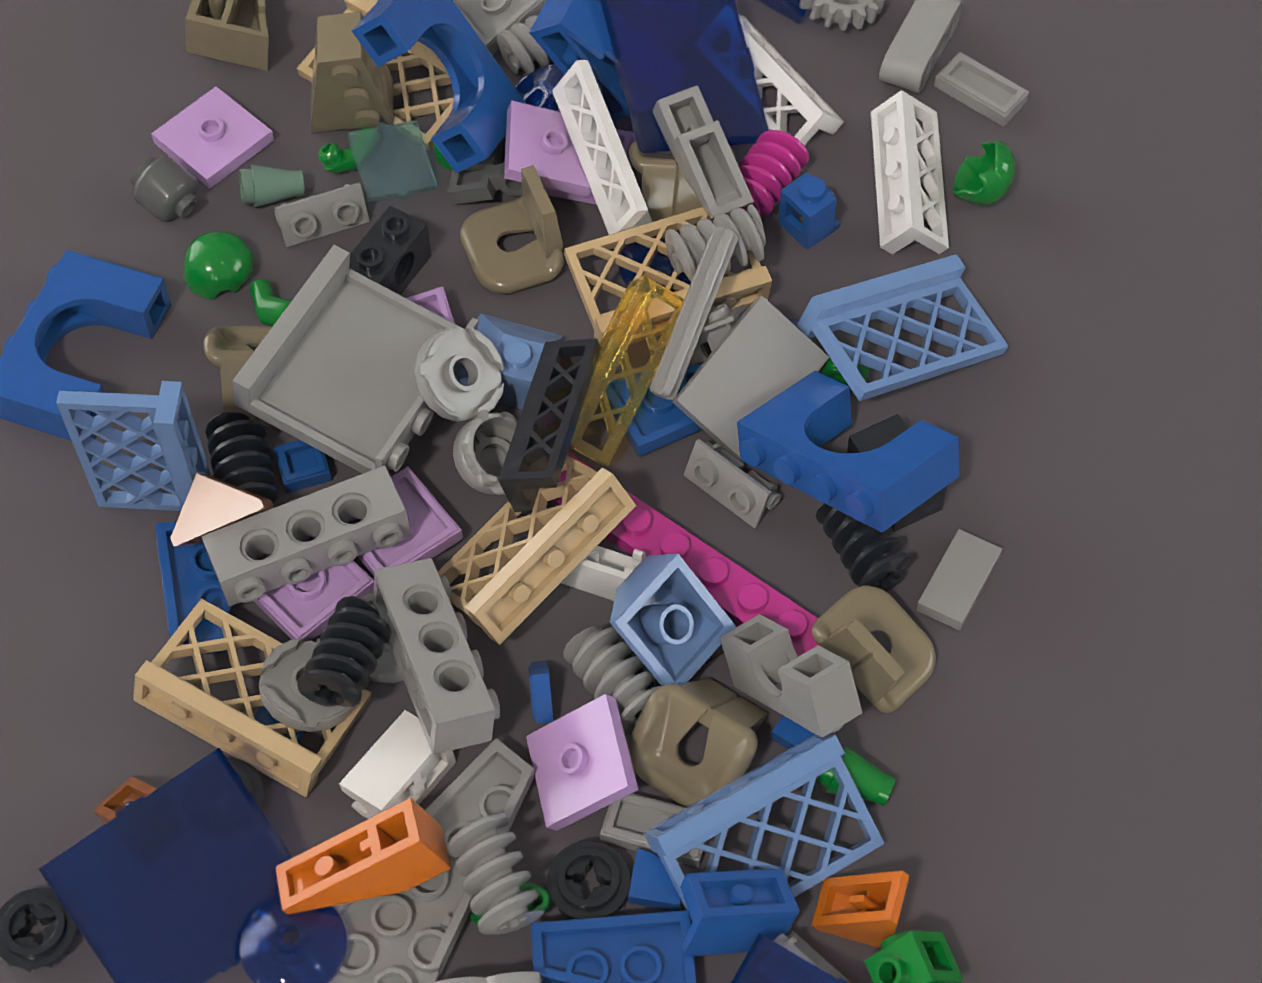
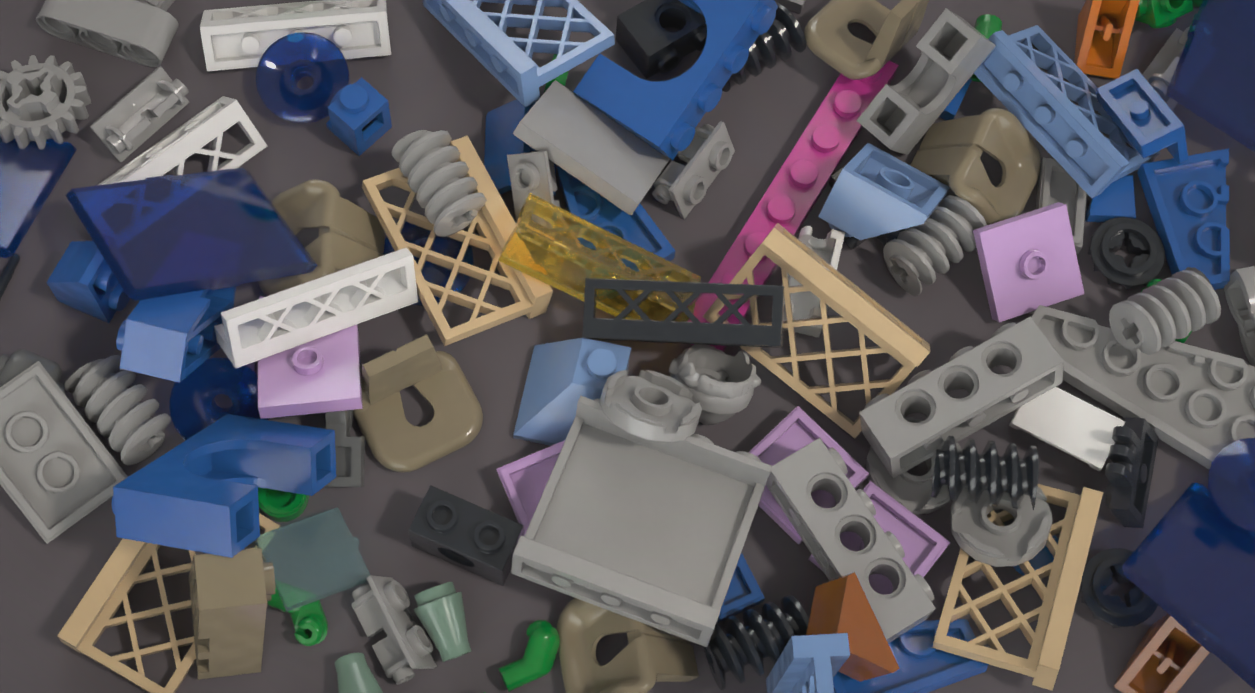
camera: 105 degrees left, 10 degrees up
(316, 243) = (444, 619): none -> sand green cone
(324, 812) = (1131, 471): none -> black hinge
(366, 861) = (1185, 426): orange slope -> none
(540, 692) = (951, 308): blue tile -> none
(693, 313) = (537, 187): light grey axle -> none
(702, 152) = (323, 198): light grey slope -> none
(771, 167) = (309, 159): dark pink piece -> none
(825, 60) = (140, 113): none -> light grey hinge
(855, 170) = (296, 58): none -> clear blue dish

